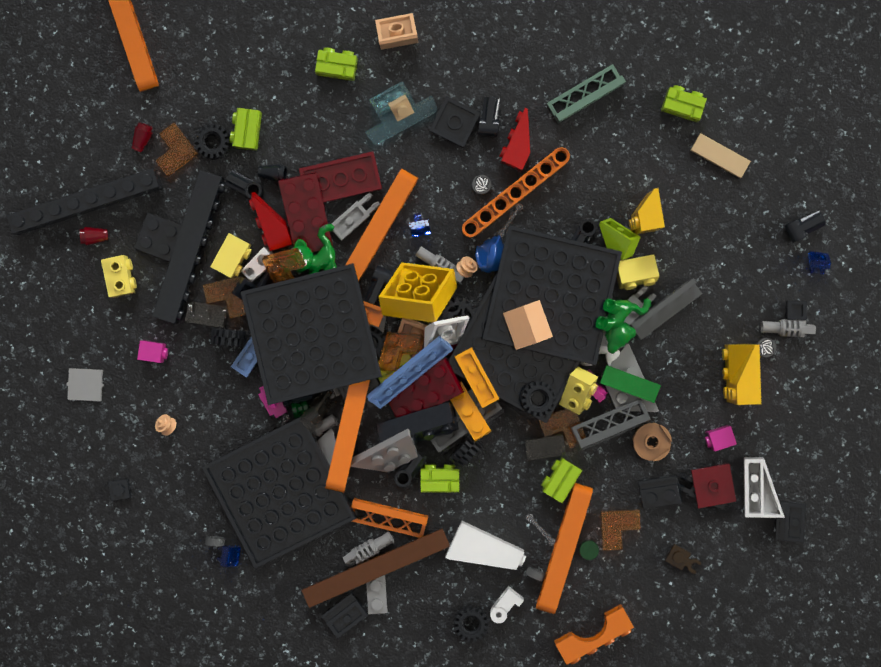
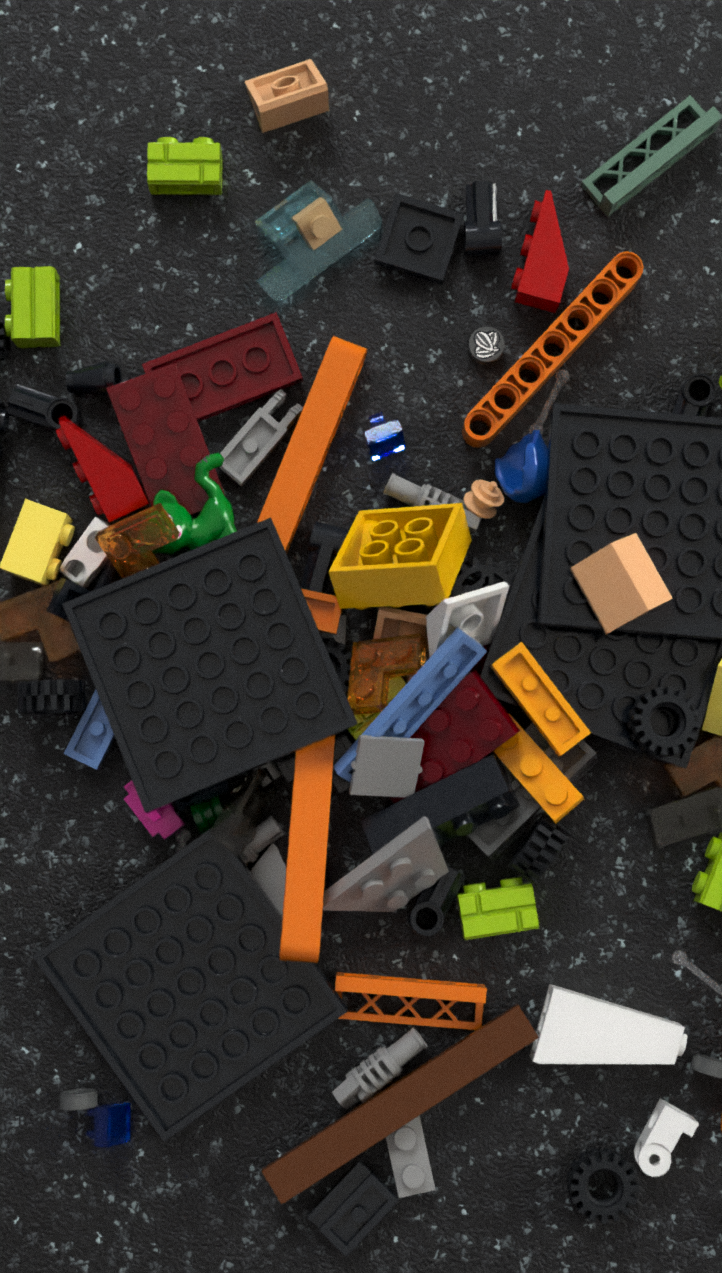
camera: 10 degrees left, 5 degrees down
(393, 399) = (386, 766): none -> light grey piece

